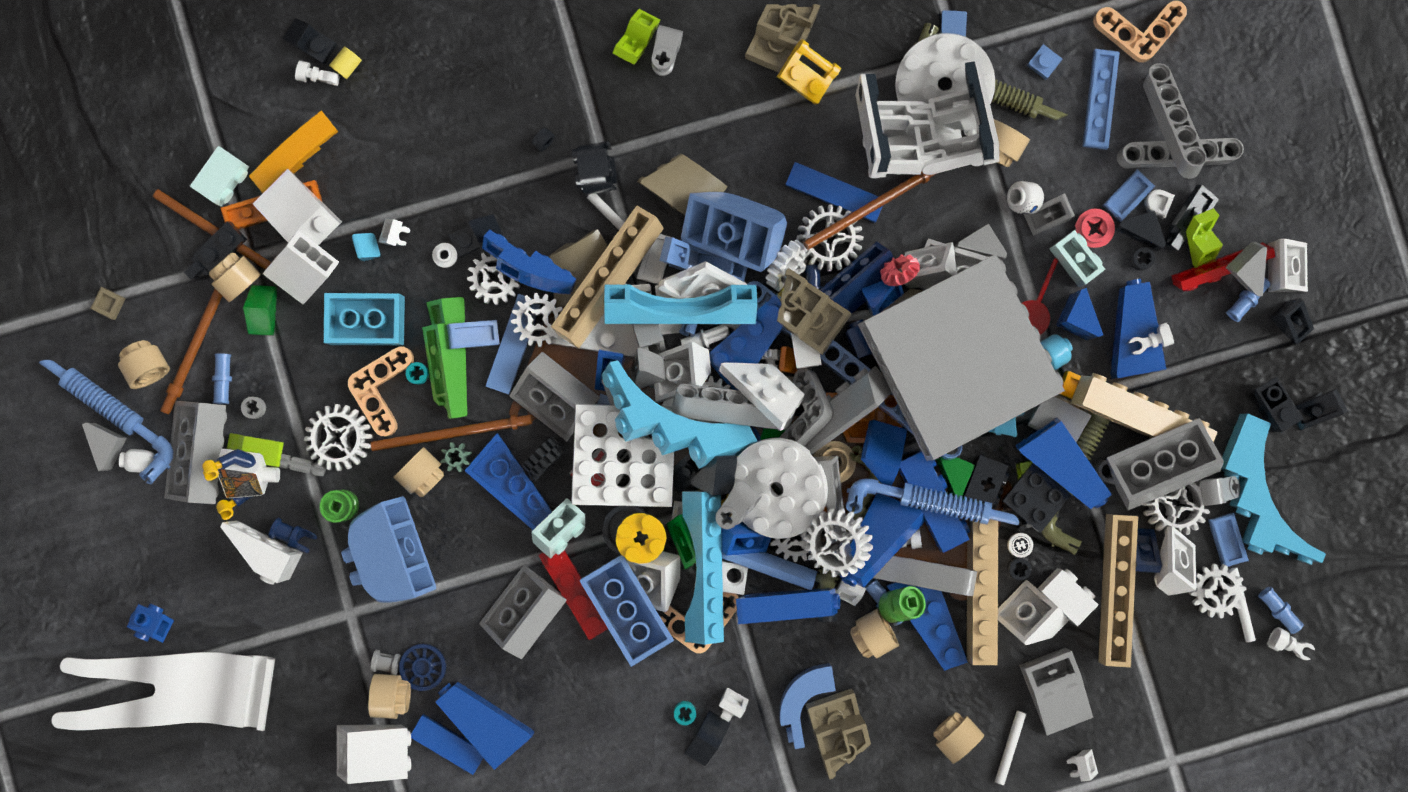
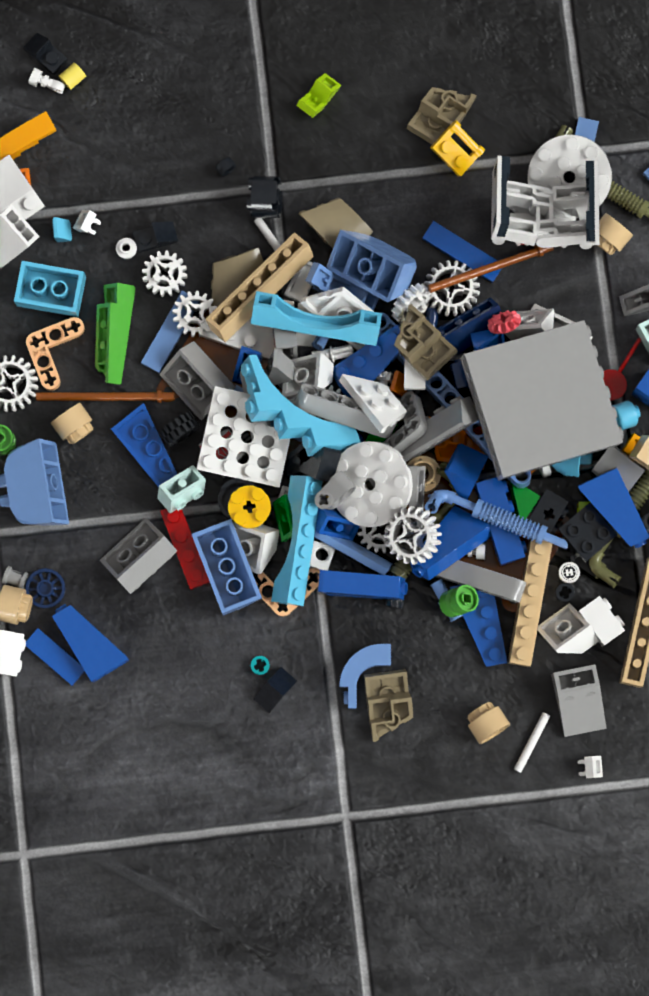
camera: 10 degrees right, 5 degrees down
(412, 367) = (81, 337): teal bush -> none
(449, 460) = (105, 422): sand green gear -> none
(473, 334) = (138, 317): medium blue tile -> none
(532, 271) = (199, 272): blue slope -> none
(666, 46) = (342, 107): light grey piece -> none
(732, 704) = (301, 663): white tile -> none
(849, 593) = (418, 586): white tile -> none
(873, 635) = (431, 625): tan piece -> none
(983, 243) = (578, 312): light grey slope -> none
(1025, 197) = (621, 282): white head -> none

